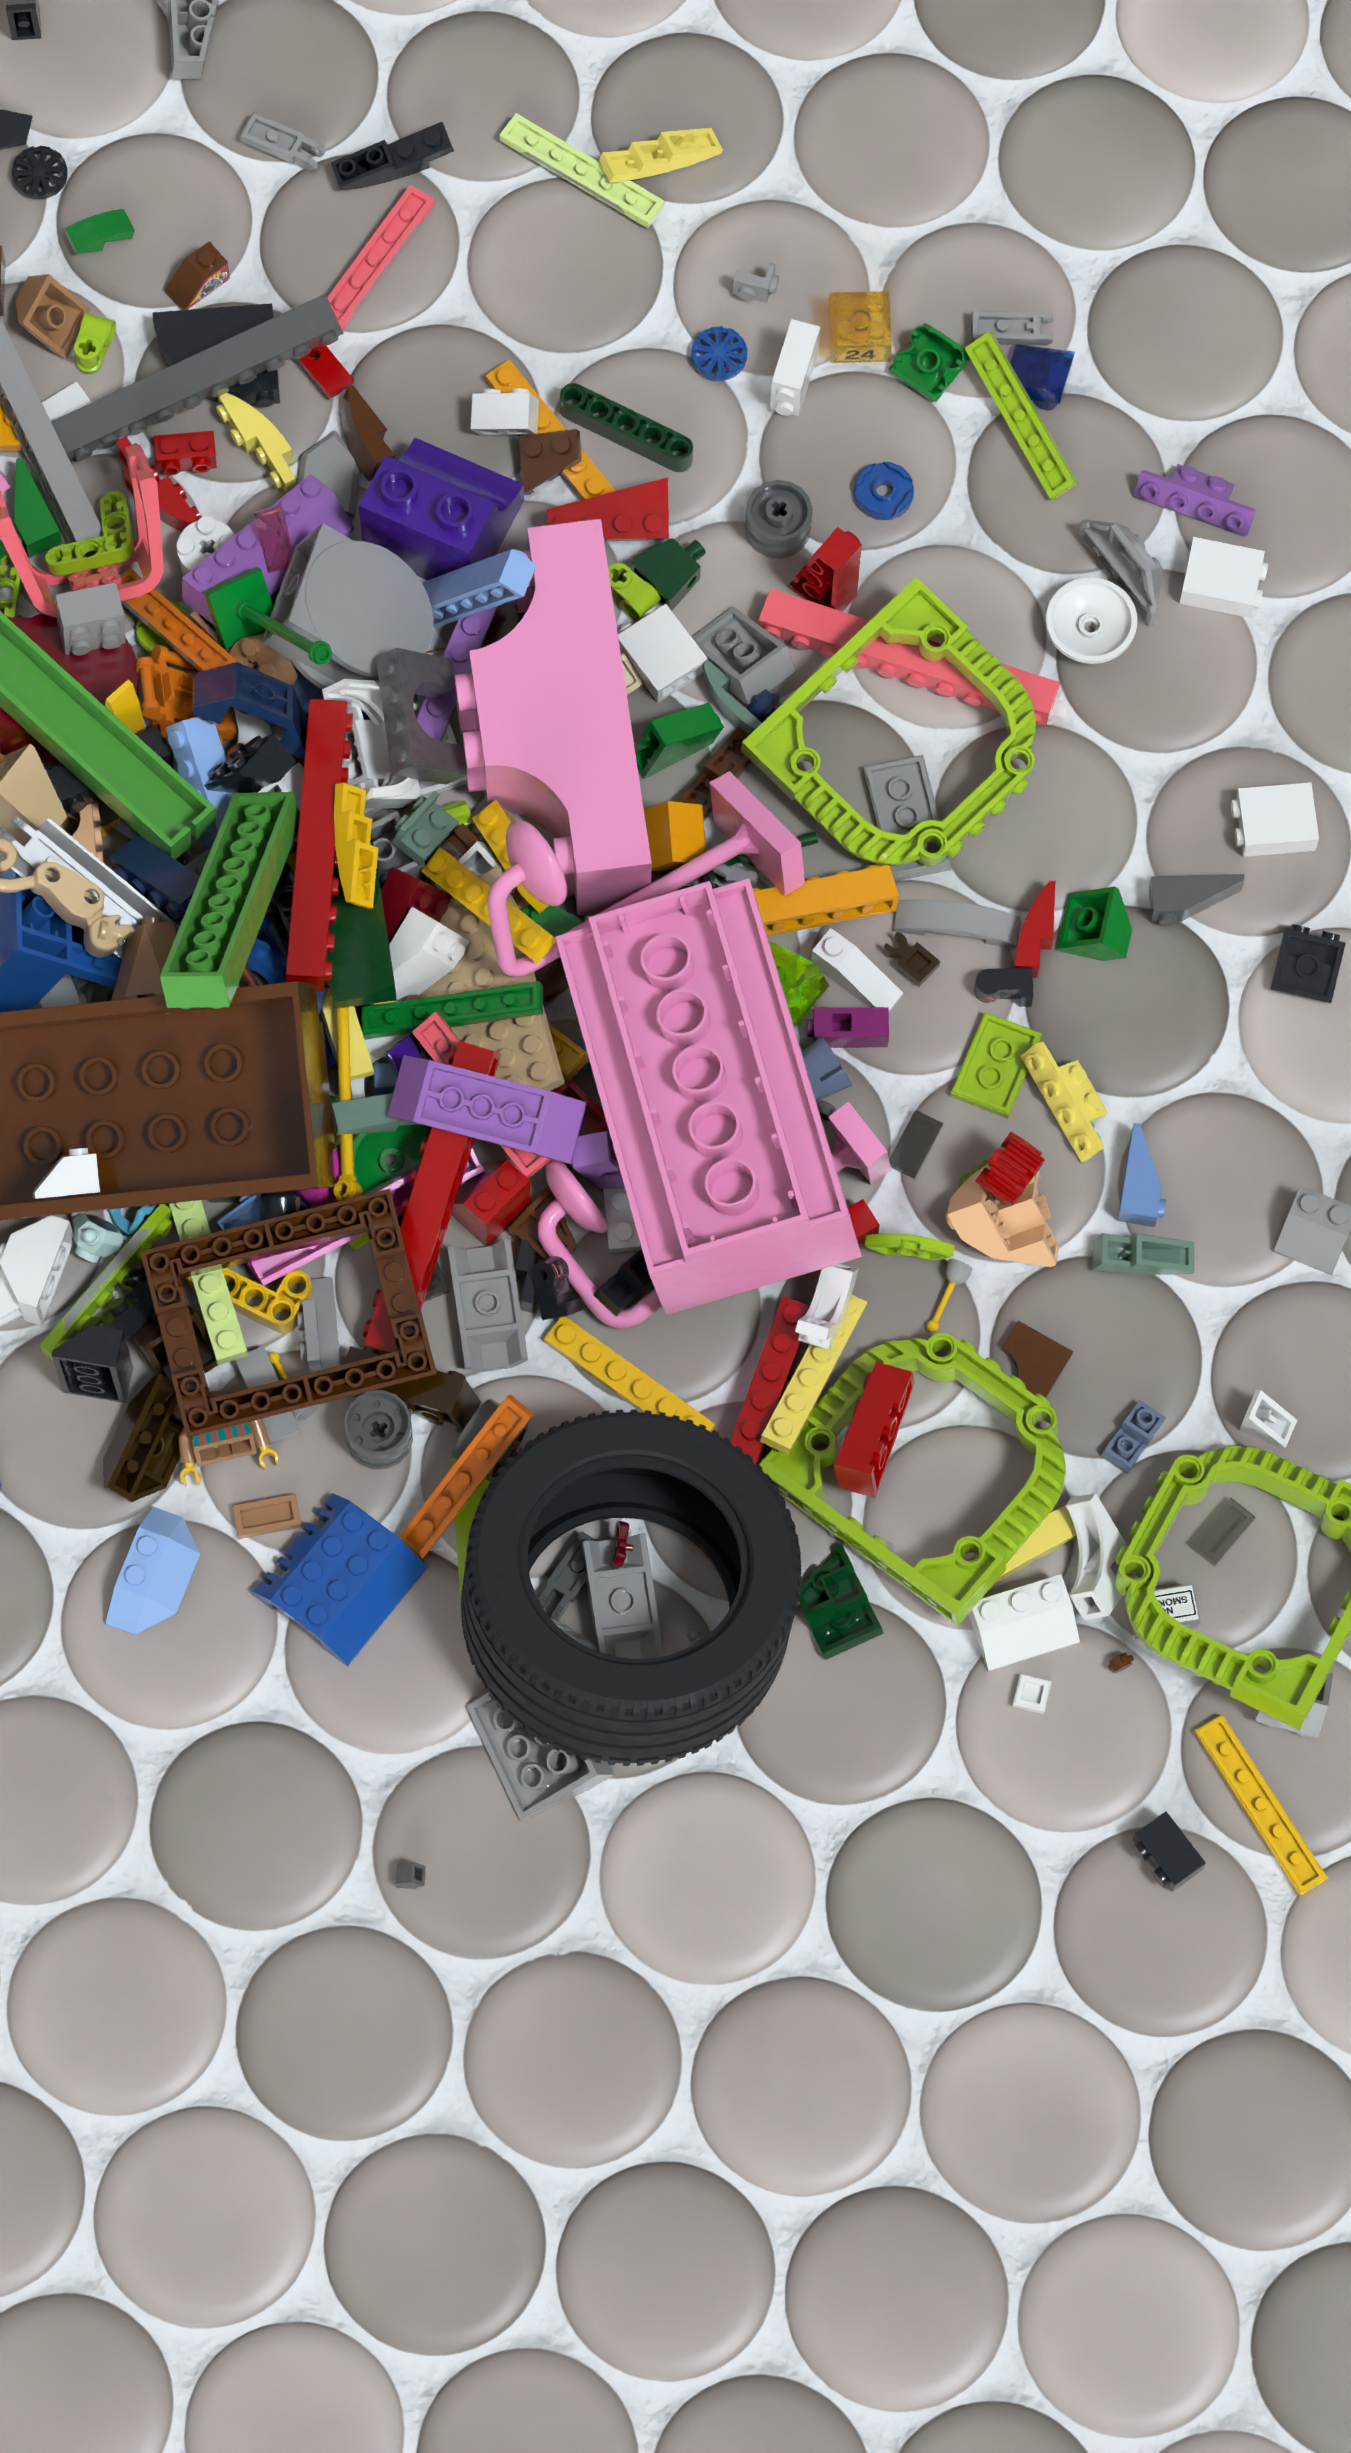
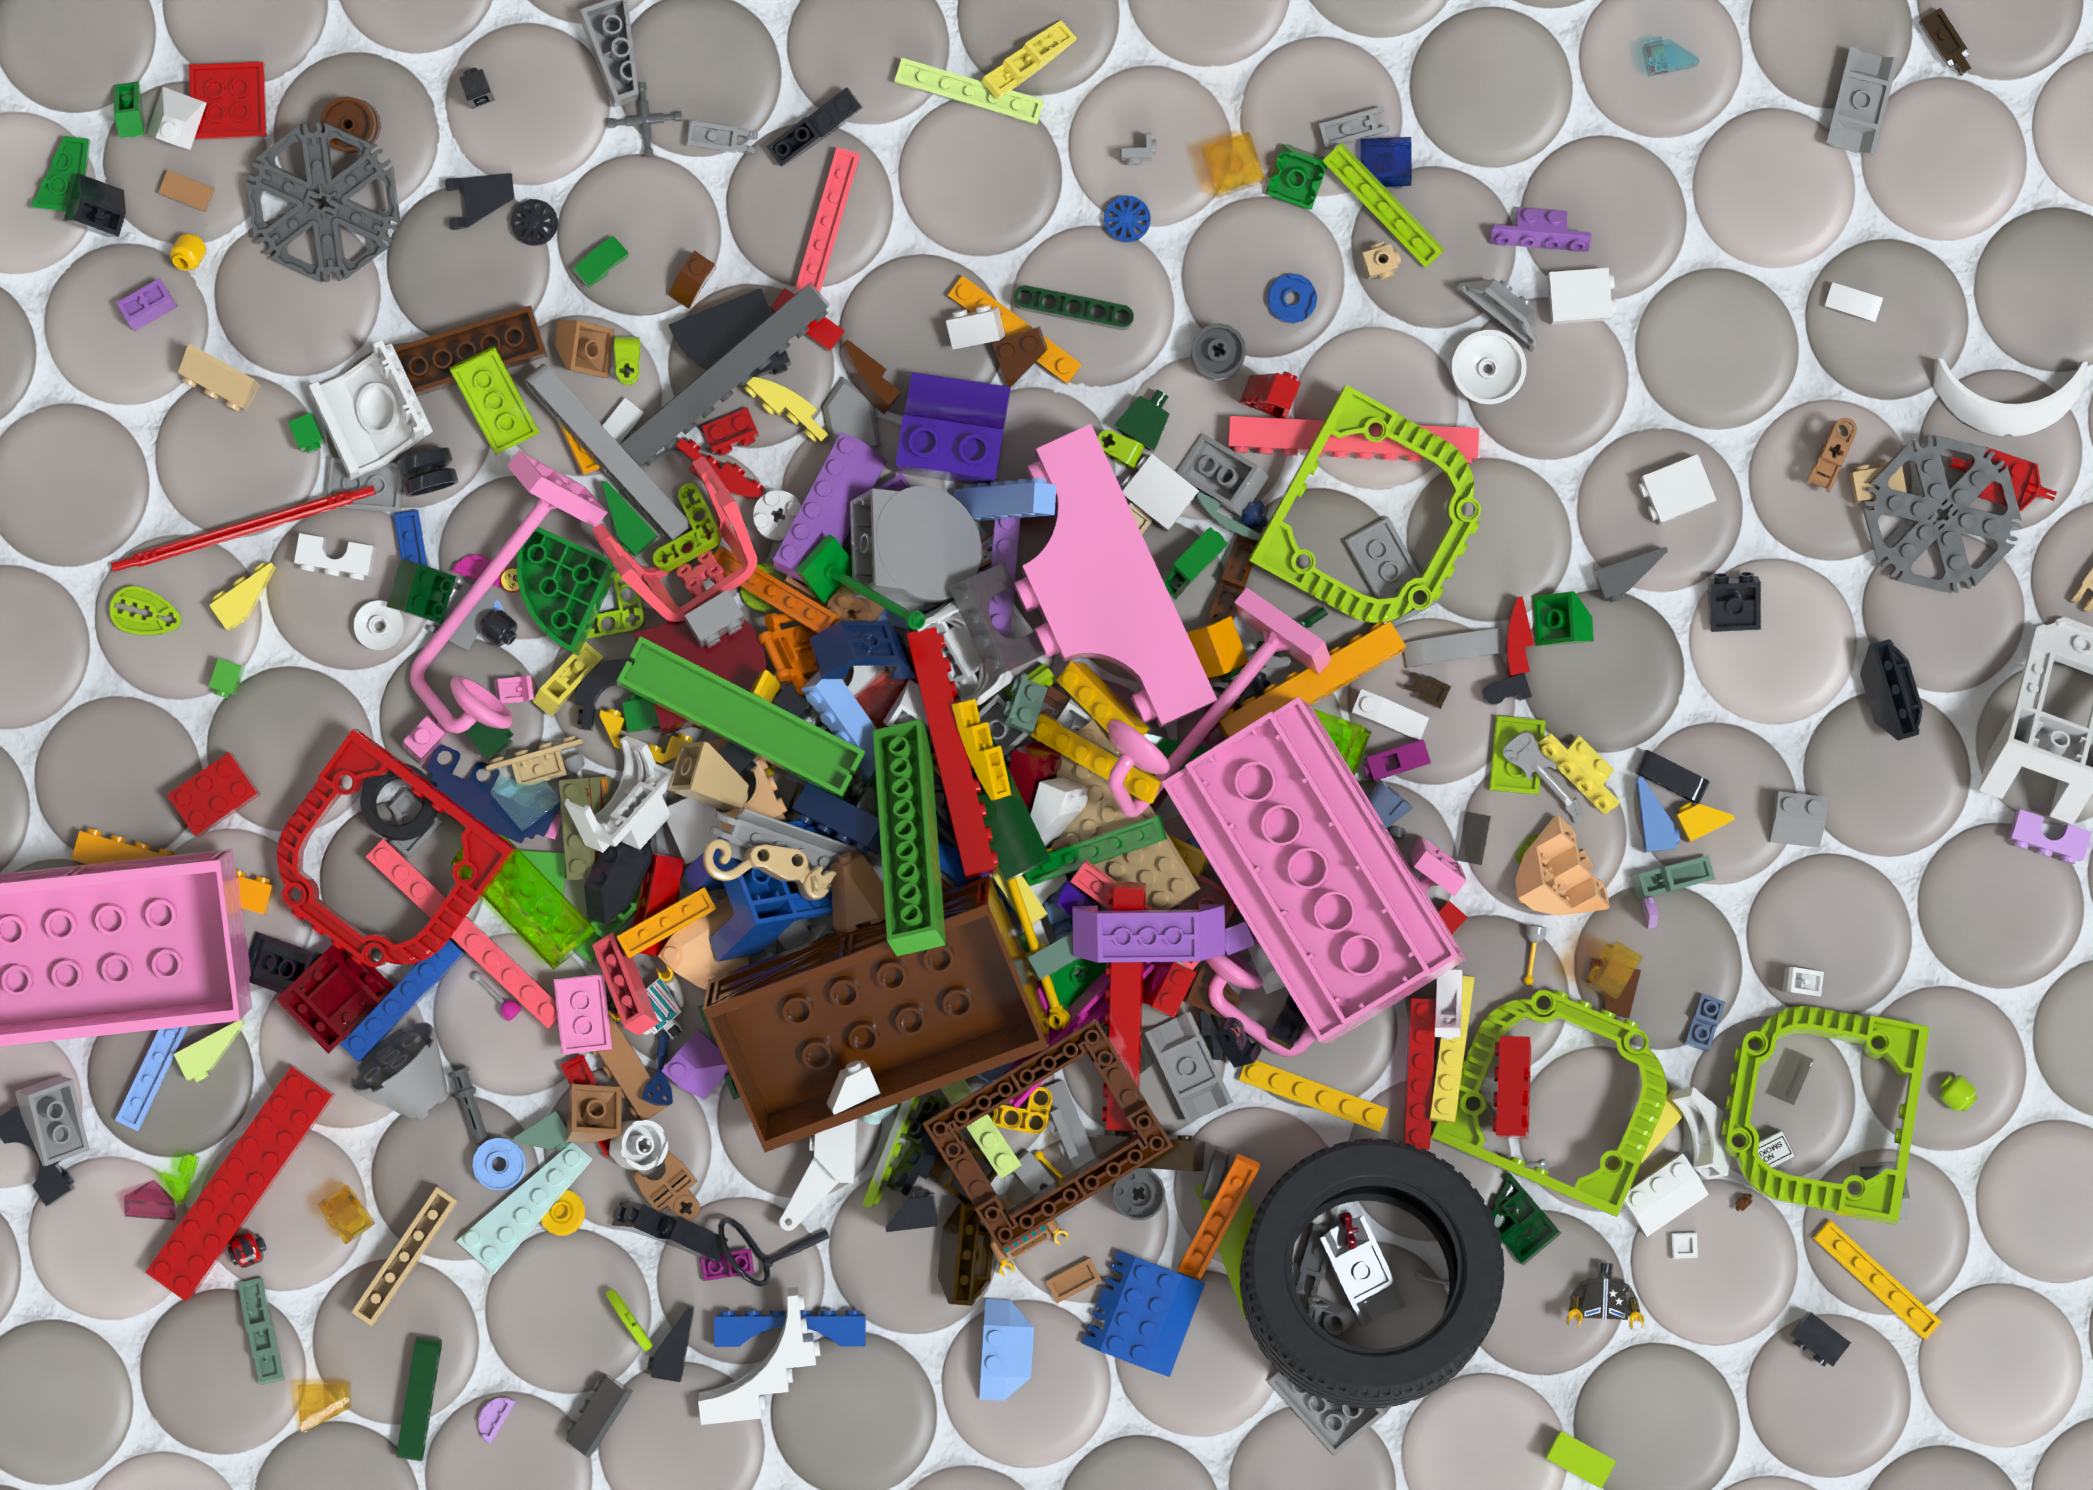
camera: 20 degrees left, 15 degrees up
(203, 101) = (645, 119): none -> dark grey piece
(251, 766) = (879, 702): black slope -> none
(274, 538) = (833, 501): clear pink slope -> none
(624, 514) = (1087, 390): red wedge -> none
(794, 368) = (1193, 220): white brick -> none
(824, 1909) = (1580, 1459): none -> lime piece
(909, 1245) = (1494, 926): lime tile -> none
(912, 1725) = (1604, 1299): none -> clear smoke torso
(999, 474) = (1374, 267): none -> tan brick
(1006, 1058) = (1525, 753): none -> light grey piece
(1011, 1169) = (1558, 850): red brick -> none
(1039, 1332) = (1614, 970): none -> clear yellow brick
(1103, 1285) = (1650, 912): none -> lavender tile
(1176, 1139) = (1672, 776): none -> black beam
(1197, 1199) = (1700, 820): none -> yellow slope

